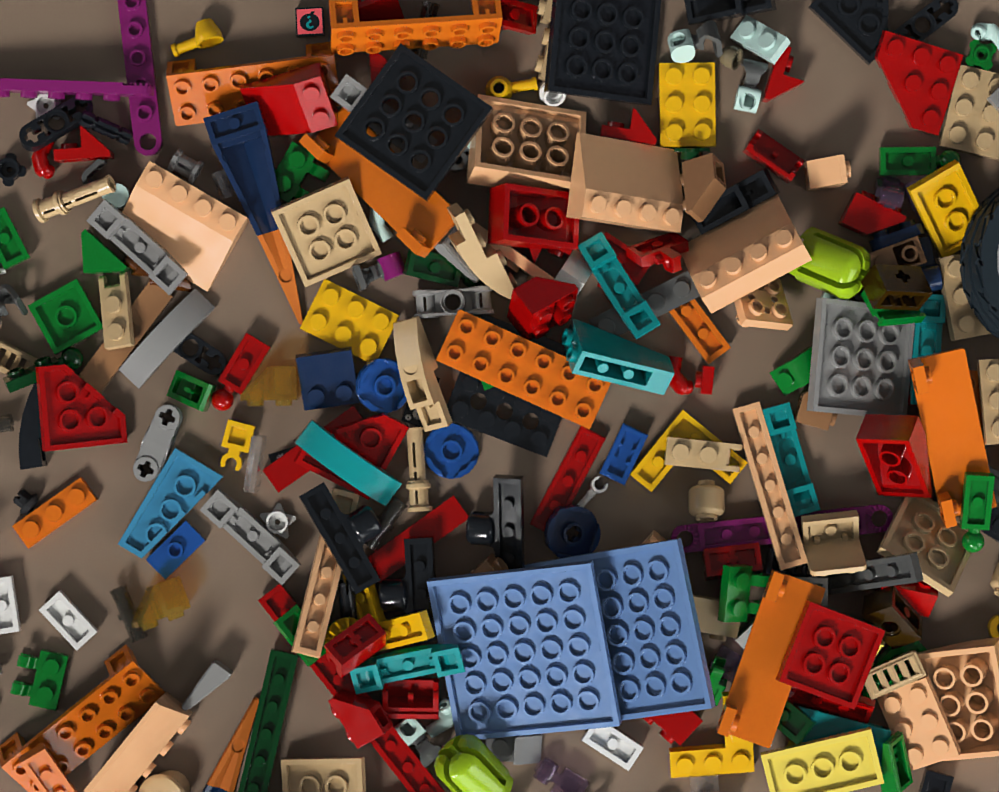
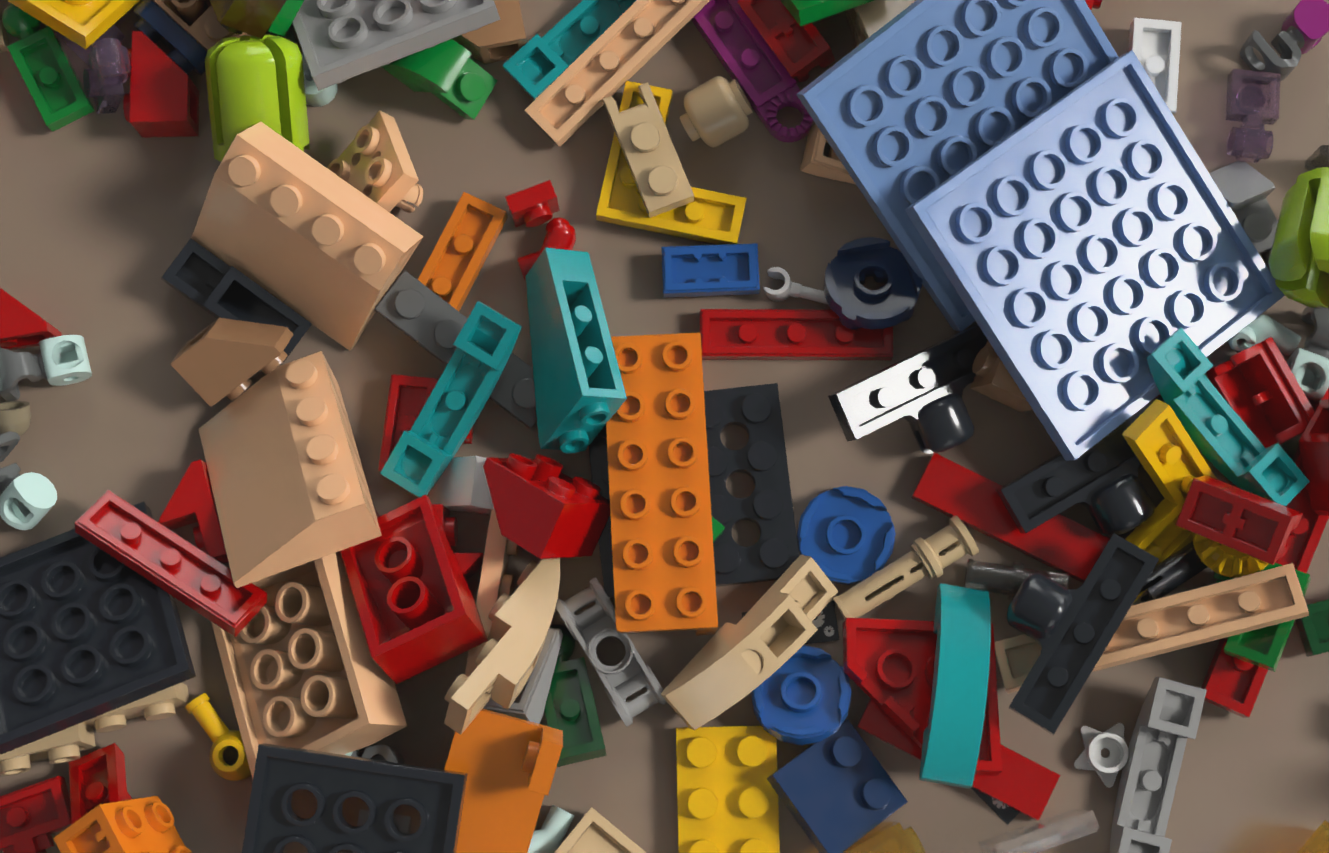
camera: 110 degrees left, 10 degrees down
(385, 268) = (611, 788): leg -> none
(549, 98) = (208, 661): white plate -> none
(609, 104) = (170, 562): none -> red tile
(660, 250) = (363, 366): red hinge -> none
(687, 105) = (120, 446): yellow plate -> none
(690, 153) = (190, 401): dark green plate -> none
(773, 156) = (138, 276): red hinge -> none
(826, 172) = (120, 180): light nougat slope -> none

